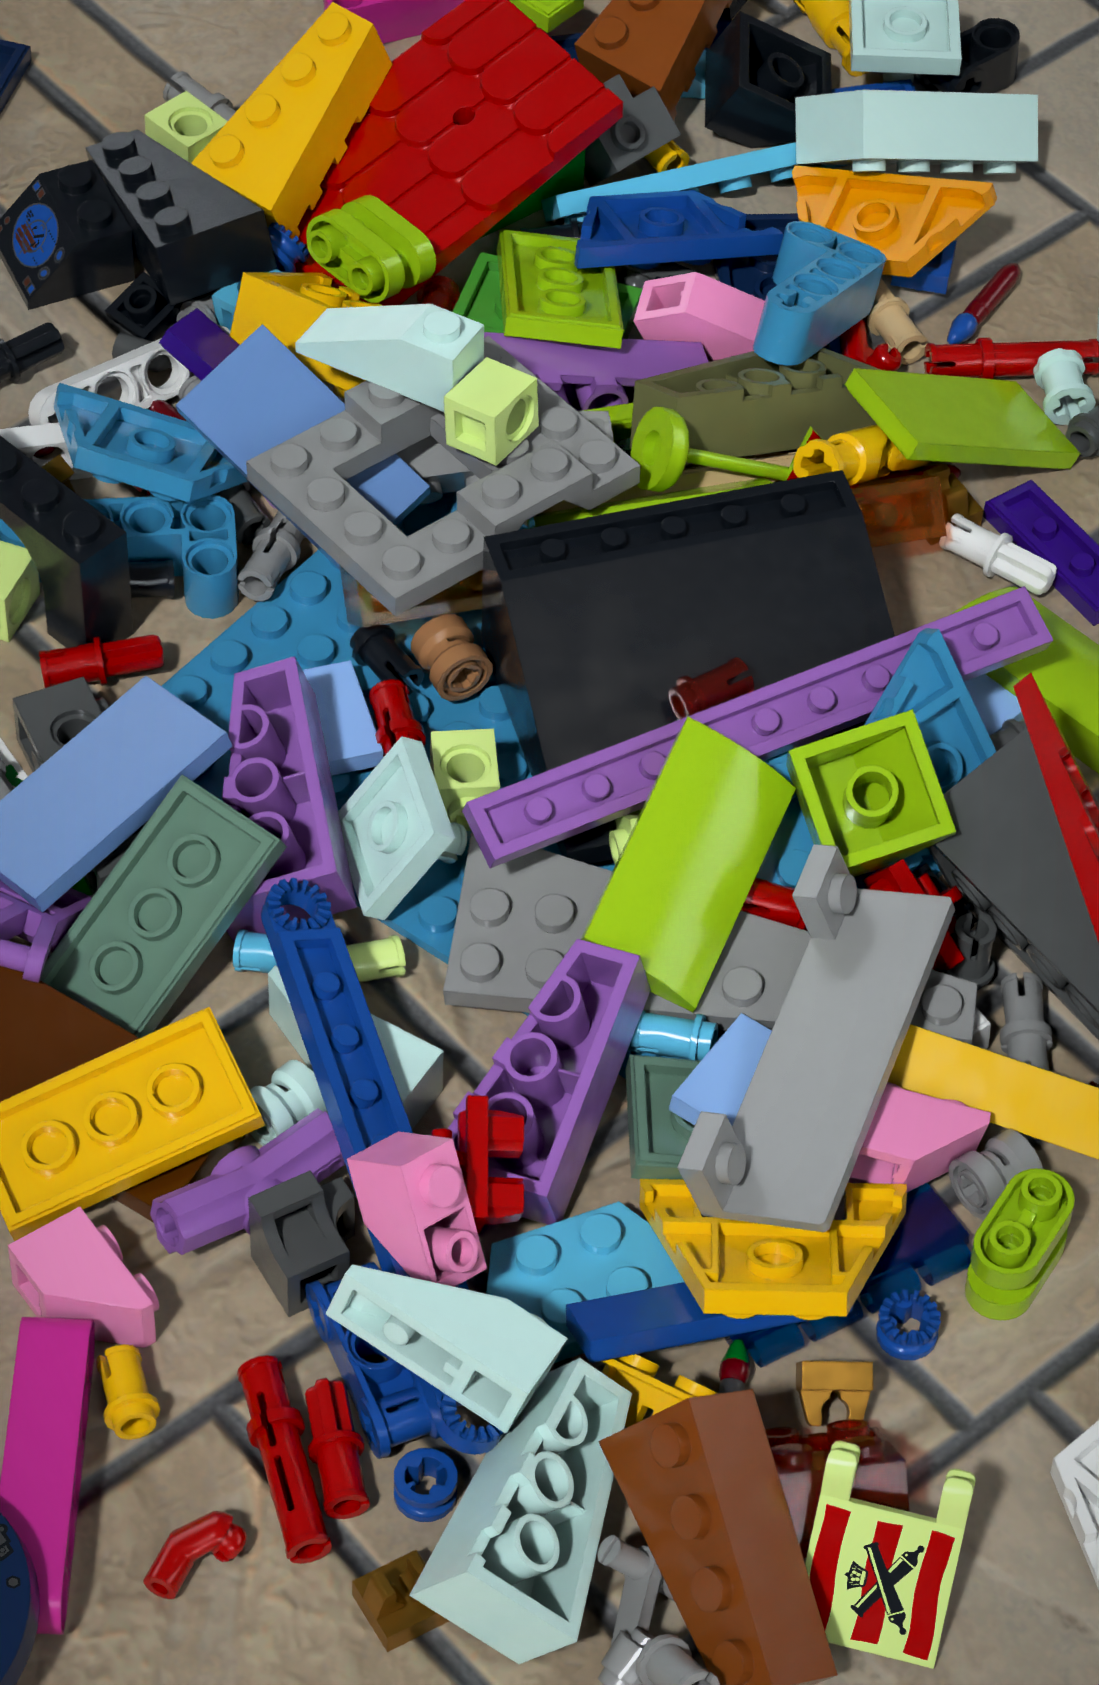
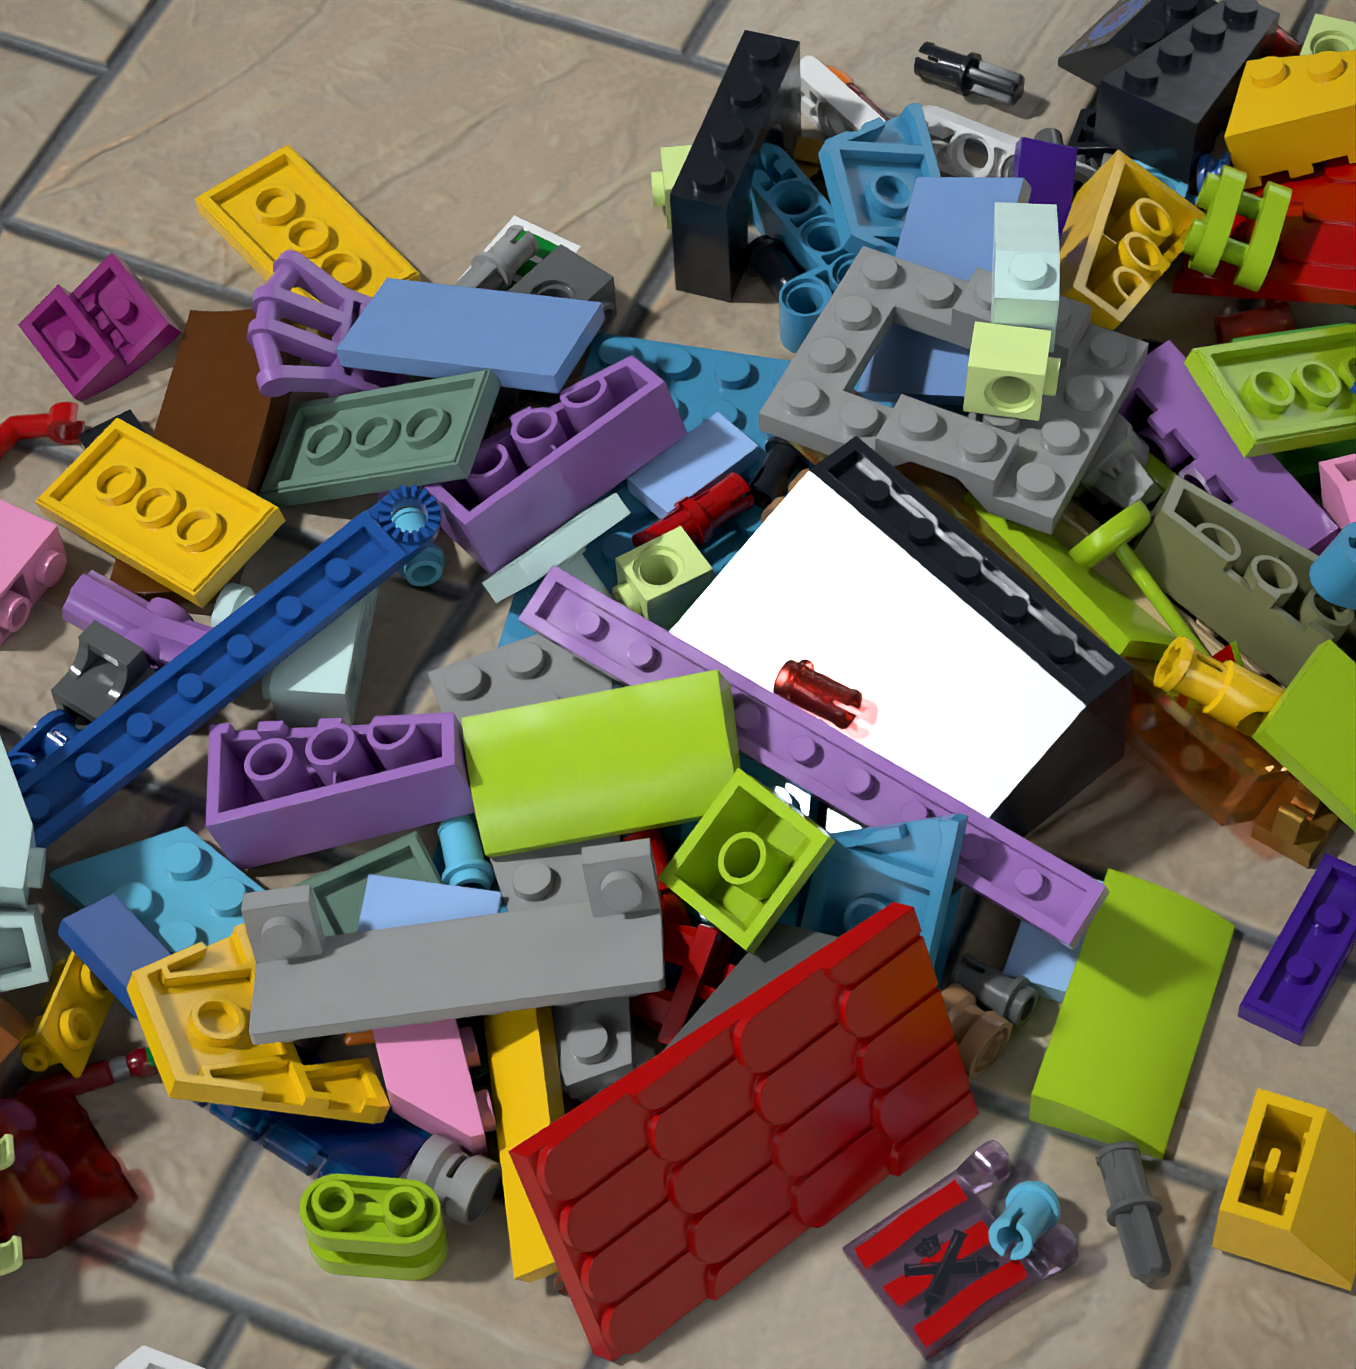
camera: 70 degrees right, 5 degrees up
(101, 660) = (666, 288): red axle -> none
(378, 958) = (430, 597): yellowish green pin -> none
(419, 1206) = (107, 729): bright pink slope -> none
(485, 1135) = (189, 748): red hips -> none
(848, 1379) = (155, 1137): pearl gold tile -> none
(900, 1309) = (244, 1165): blue bush -> none
(998, 555) = (1256, 891): white axle -> none

